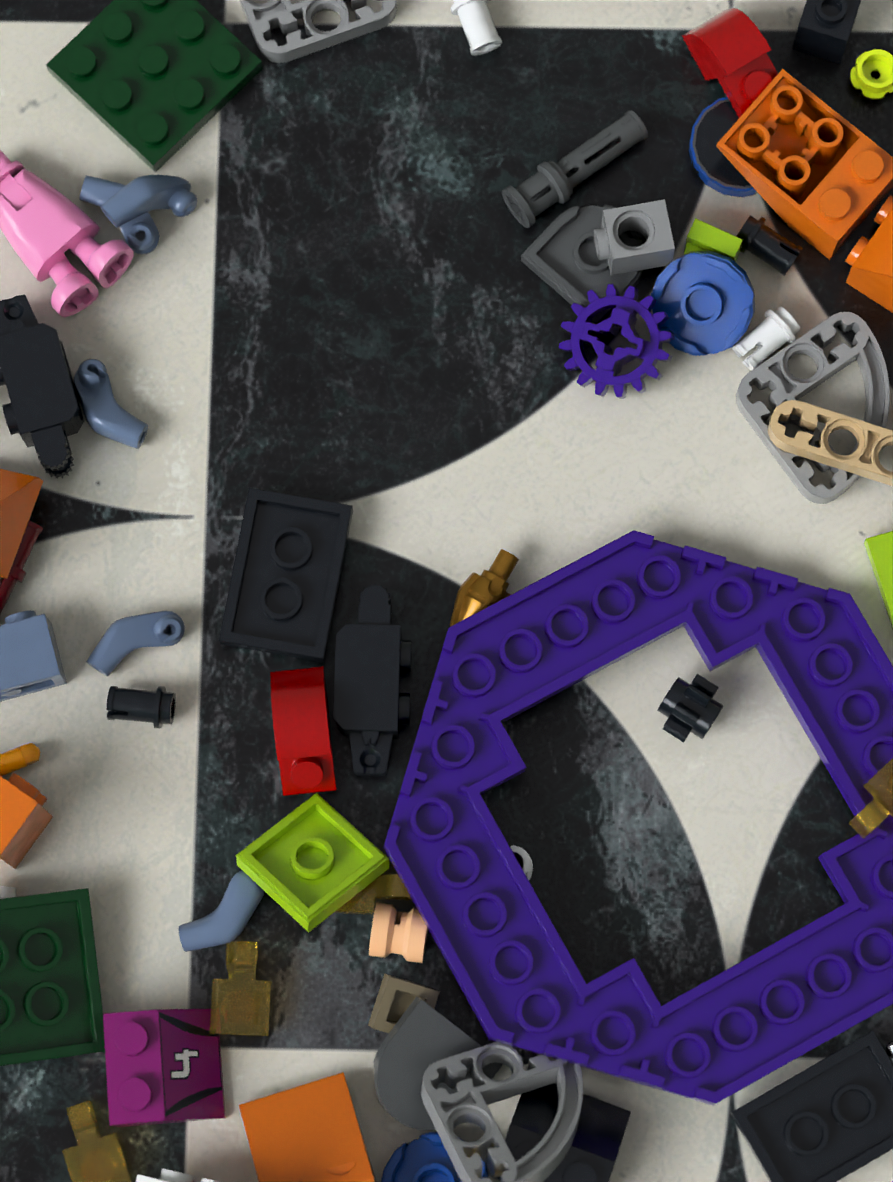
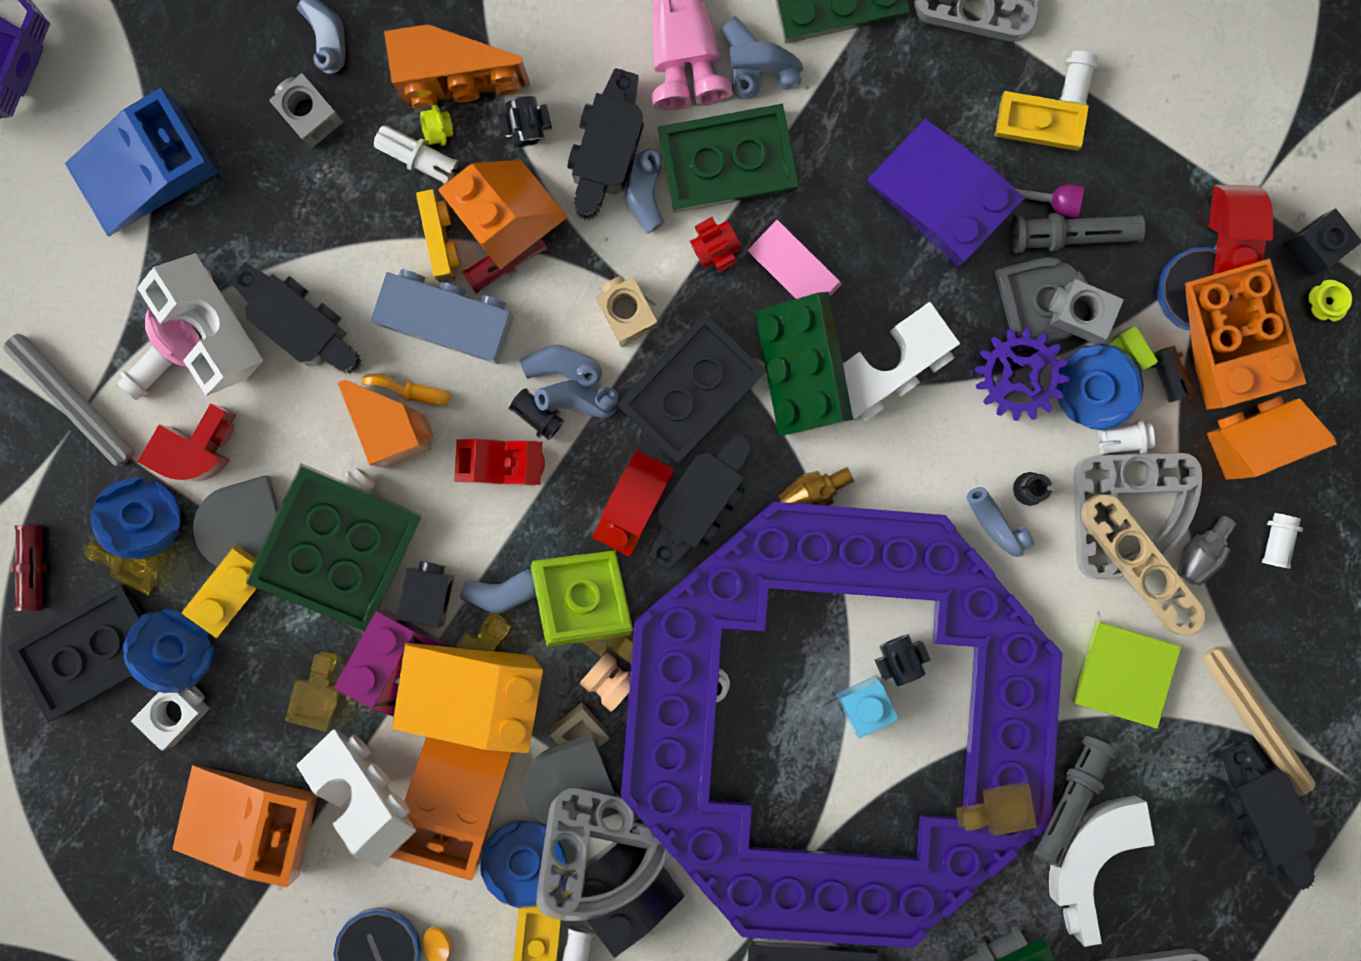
camera: 30 degrees right, 10 degrees up
(134, 778) = (499, 462): none -> red brick
(145, 968) = (425, 595): none -> black brick
(171, 320) = (728, 158): none -> dark green plate
(175, 660) = (574, 396): none -> sand blue arm
(178, 557) = (631, 328): none -> tan brick
(215, 412) = (715, 244): none -> red gear
(259, 1041) = (468, 696): none -> light orange slope
(312, 383) = (792, 263): none -> bright pink slope
(386, 473) = (804, 364): none -> dark green plate
(416, 212) = (945, 191): none -> dark purple slope
(461, 459) = (923, 343): none -> white arch
(466, 83) = (1041, 120): none -> yellow plate
(542, 145) = (1065, 199): none -> magenta hinge
(686, 779) = (867, 706): none -> medium azure brick
(694, 509) = (996, 525): none -> sand blue arm
(701, 459) = (1025, 496): none -> black pin

